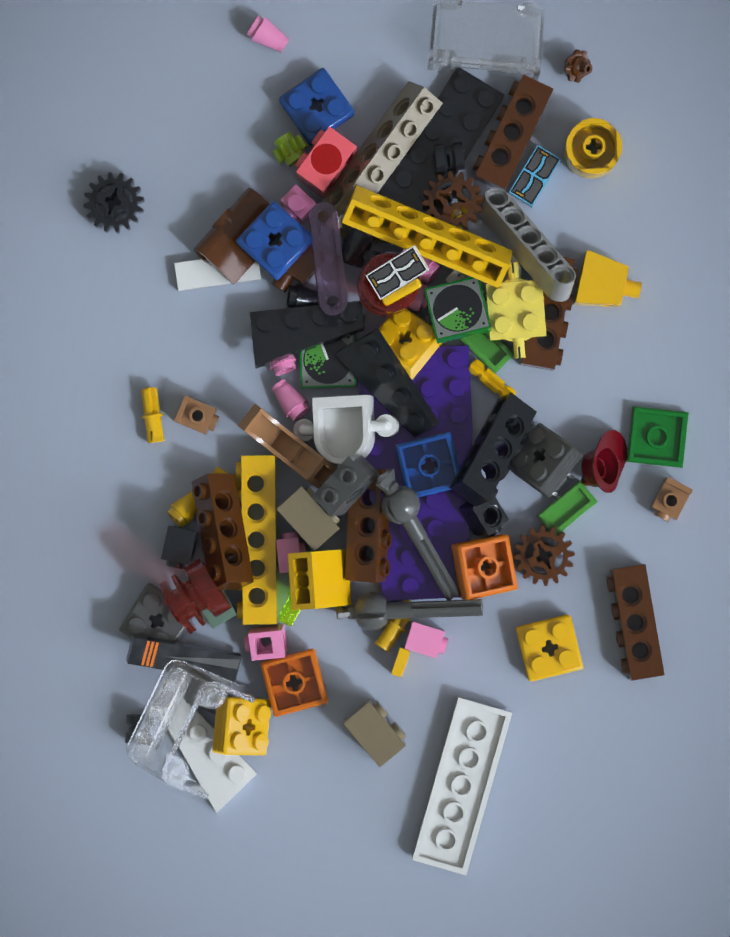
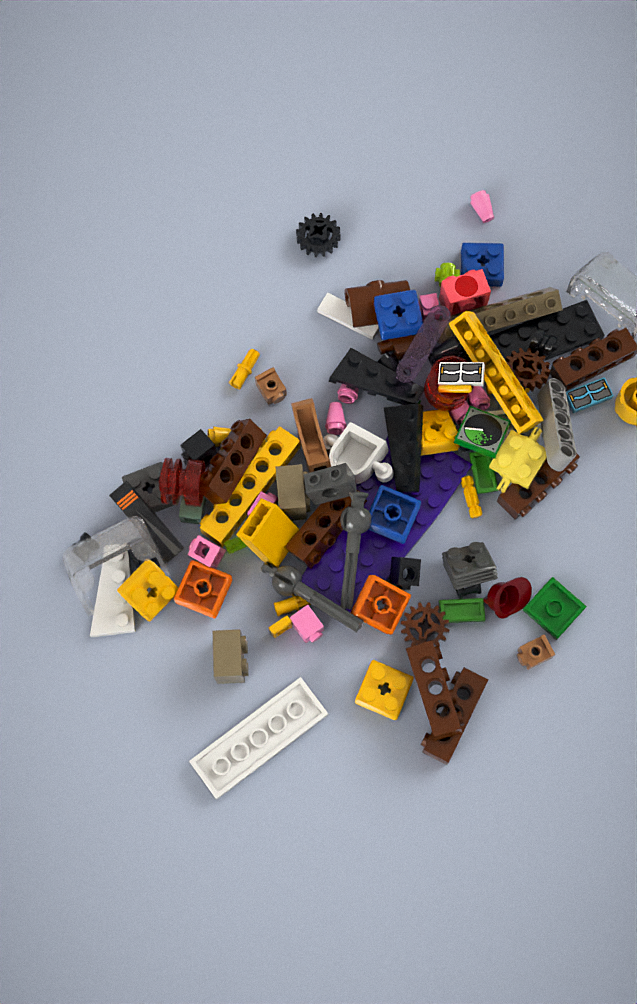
camera: 40 degrees right, 15 degrees down
(323, 369) = (370, 414): tile -> none
(469, 480) = (412, 542): black brick -> none
(604, 282) = (588, 486): yellow torso -> none
(631, 649) = (441, 726): none -> reddish brown brick

